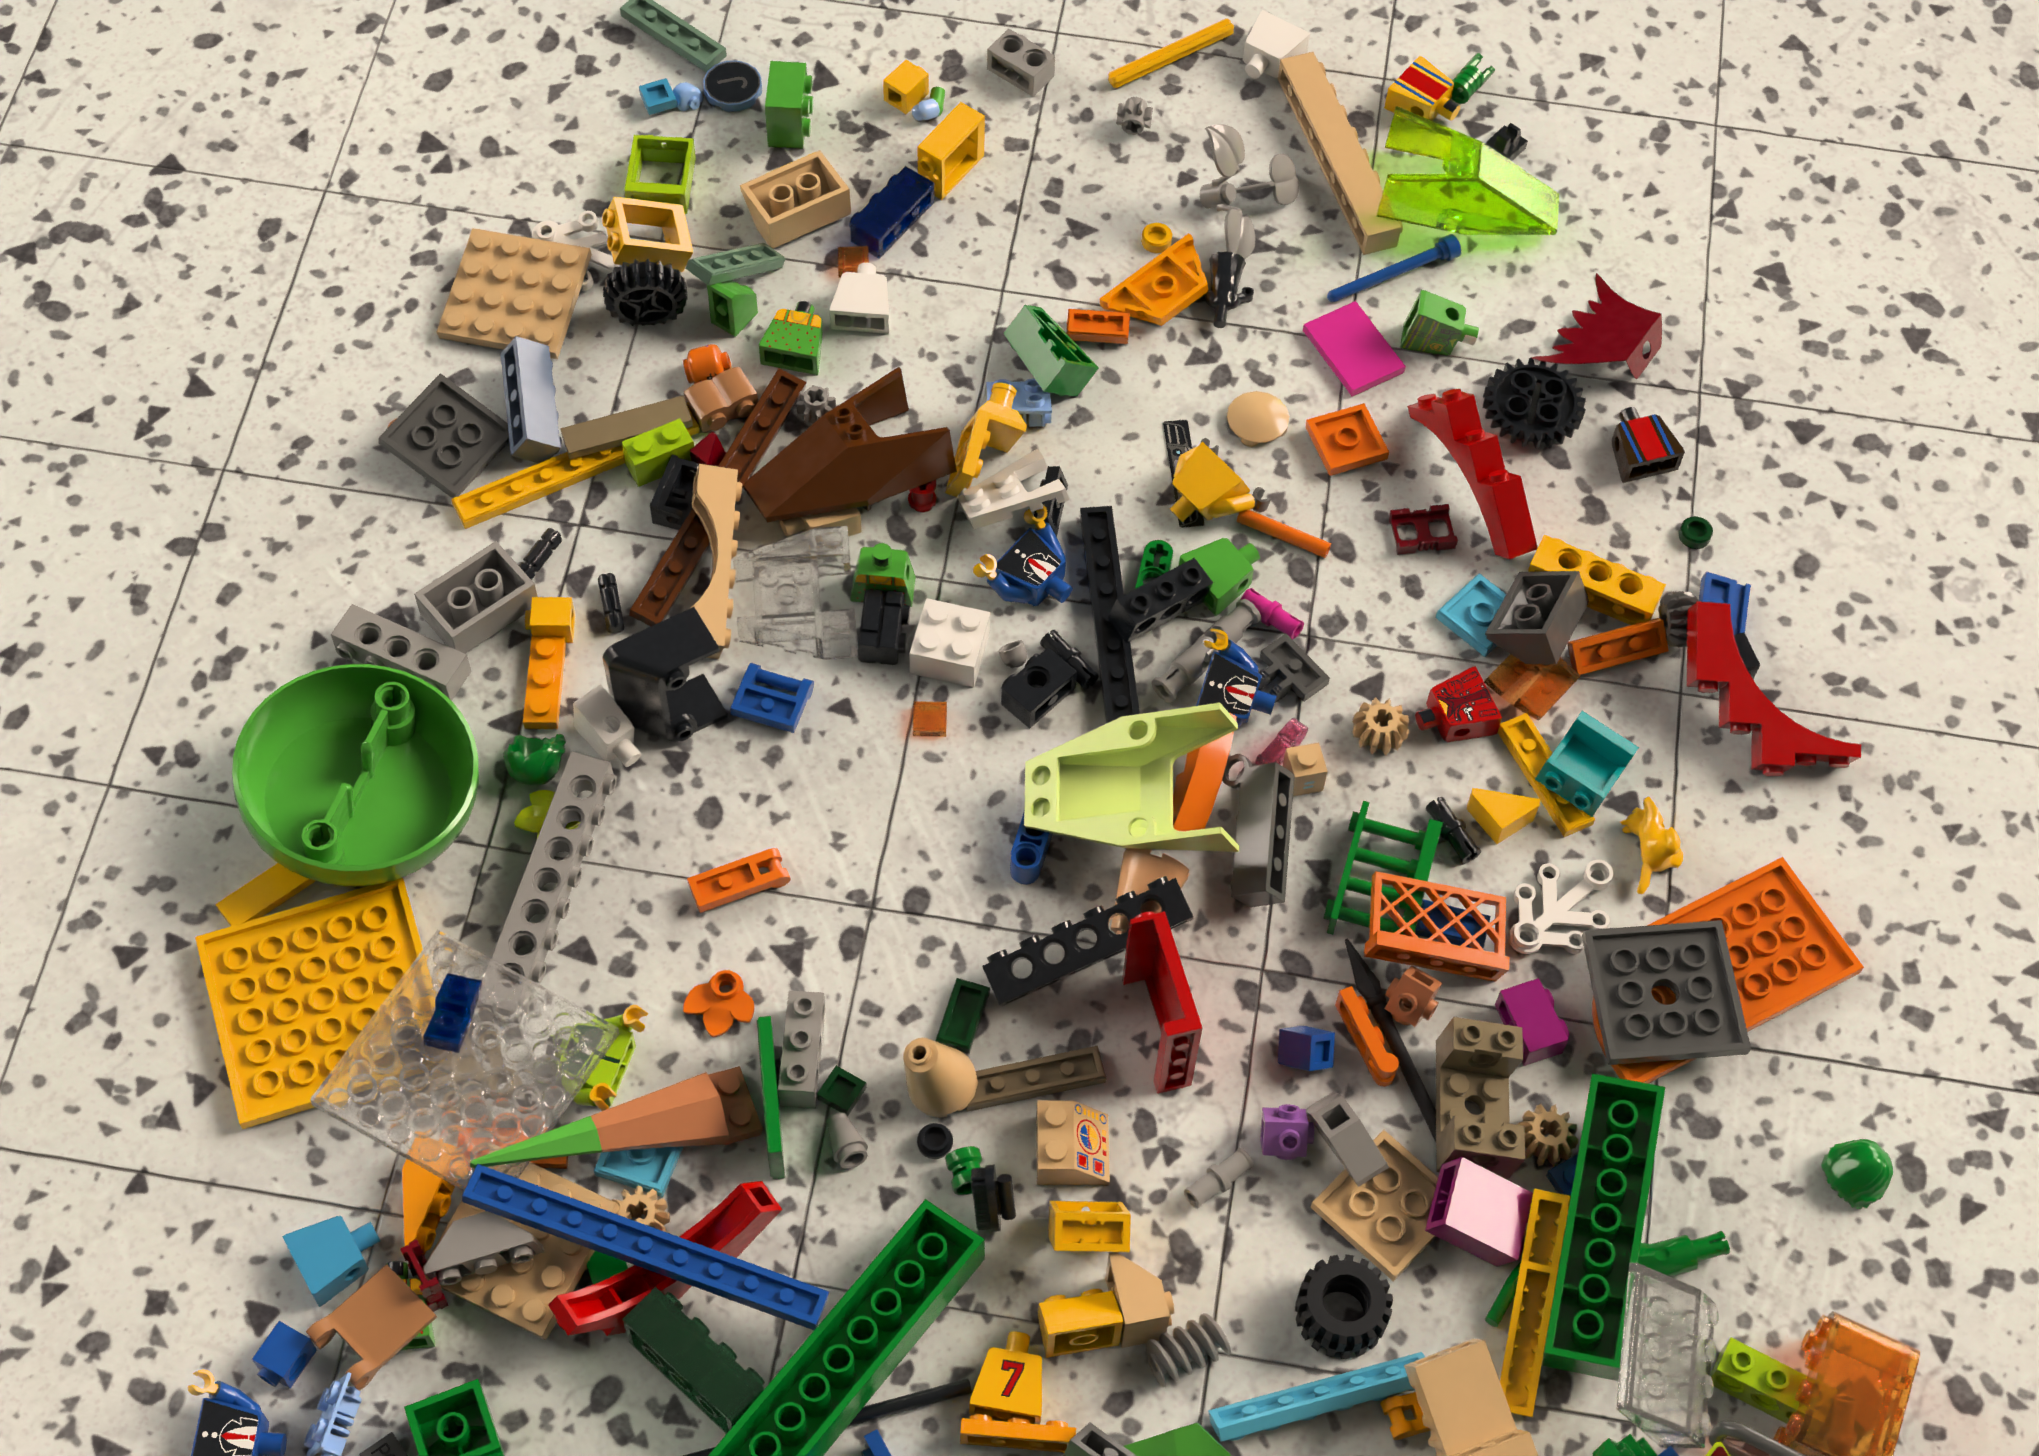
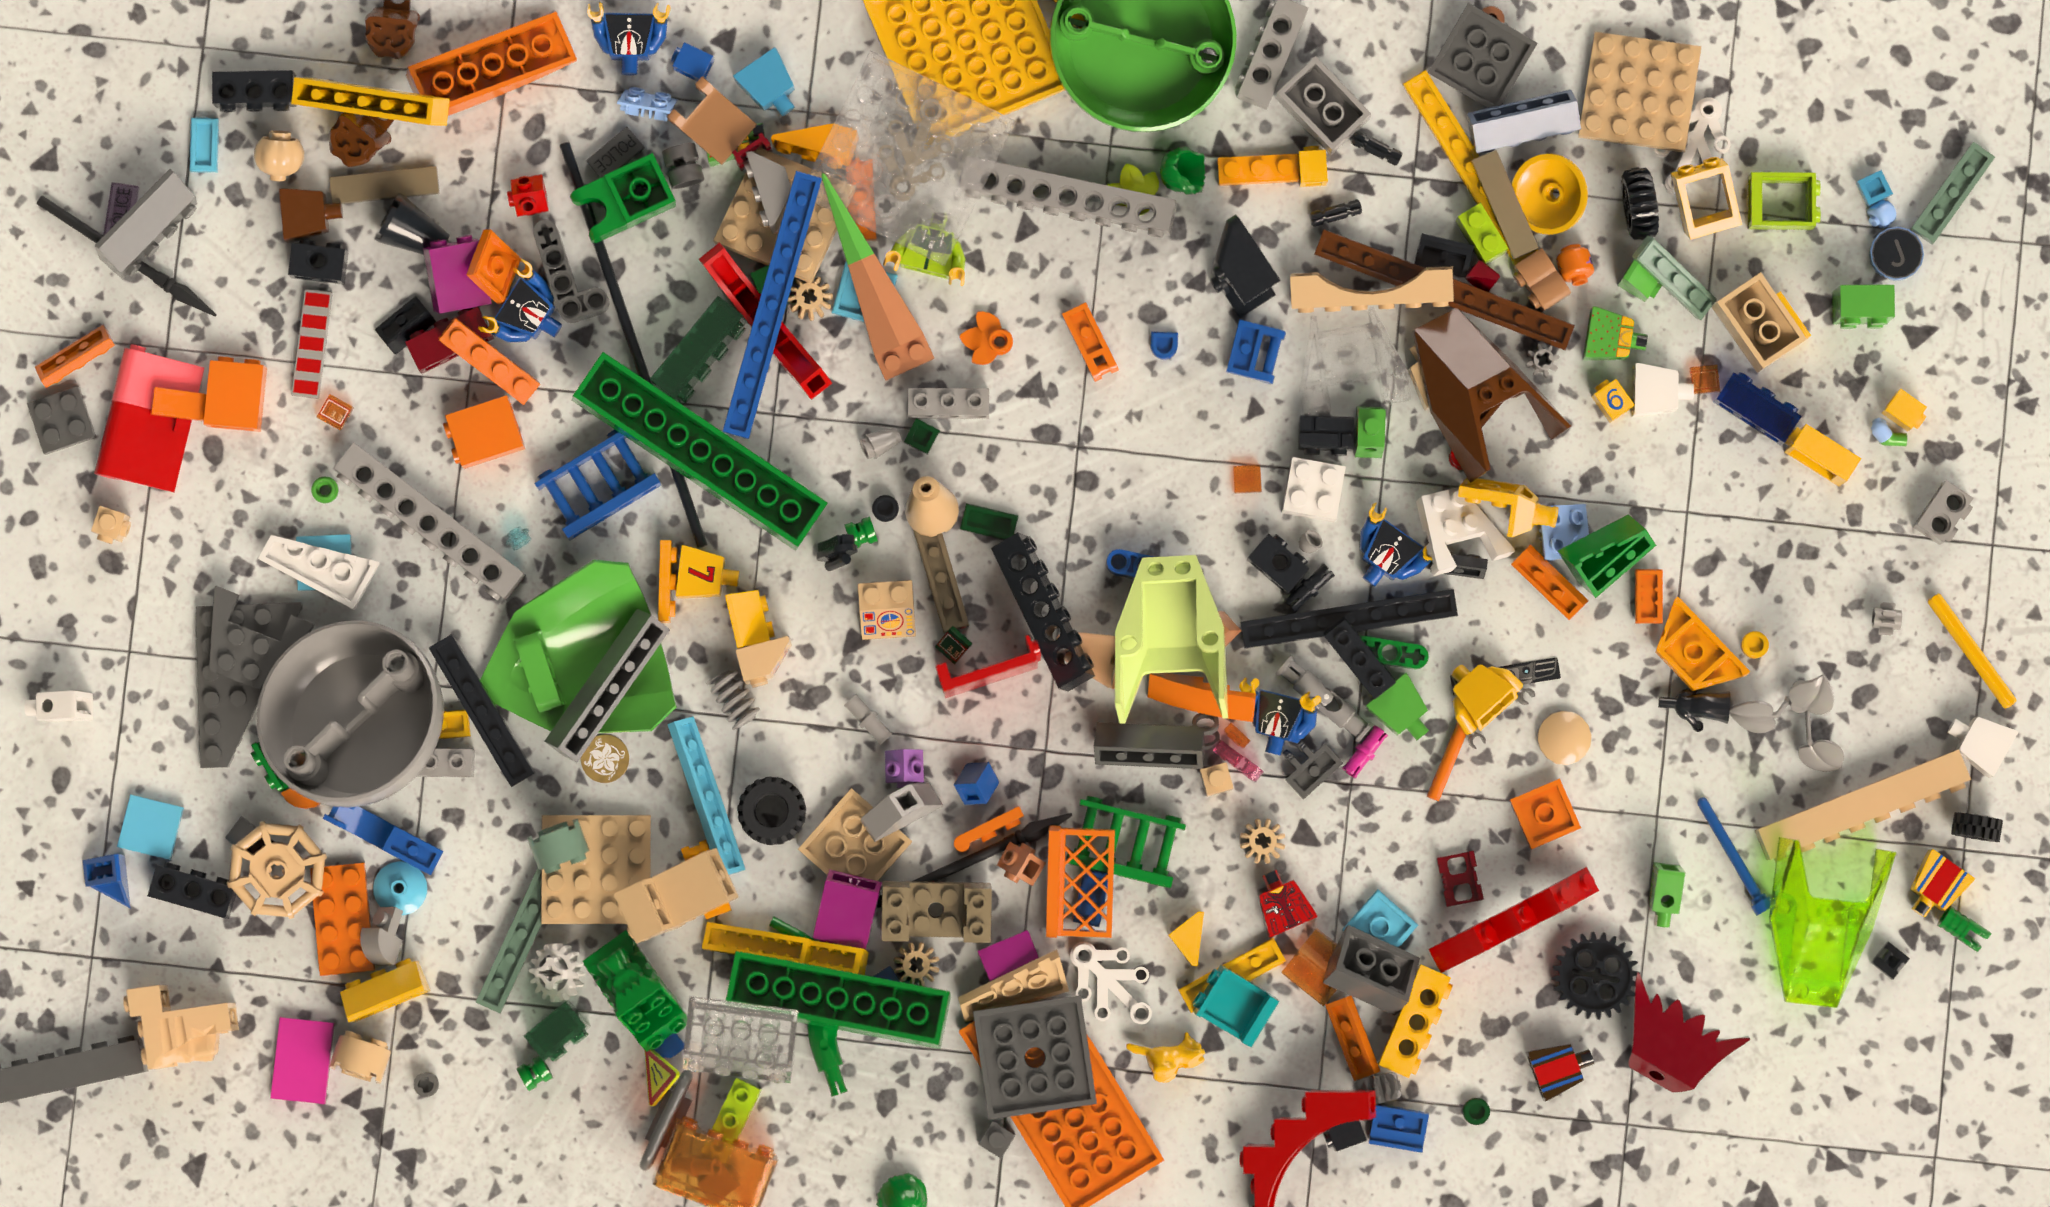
camera: 90 degrees right, 25 degrees up
(442, 1374) = (683, 175): none -> flat silver wheel
(453, 1013) = (944, 142): clear blue slope -> none
(605, 726) = (1216, 214): white torso -> none
(619, 356) = (1535, 187): none -> yellow dish
(751, 799) = (1164, 344): none -> blue tile
(770, 1097) = (901, 383): green tile -> none
(869, 342) = (1612, 399): none -> yellow brick
(1076, 415) = (1549, 582): none -> orange plate
(1100, 1229) = (802, 625): yellow window -> none
(1123, 1065) = (953, 645): none -> dark green tile
(1251, 743) = (1236, 736): none -> clear orange tile
(1353, 348) = (1645, 820): dark pink tile -> none
(1363, 52) = (1976, 827): none -> black tyre
(1453, 830) = (1174, 899): black pin -> none
(1573, 1008) = (1021, 986): none -> tan wing
(1771, 1049) = (996, 1139): none -> dark grey brick

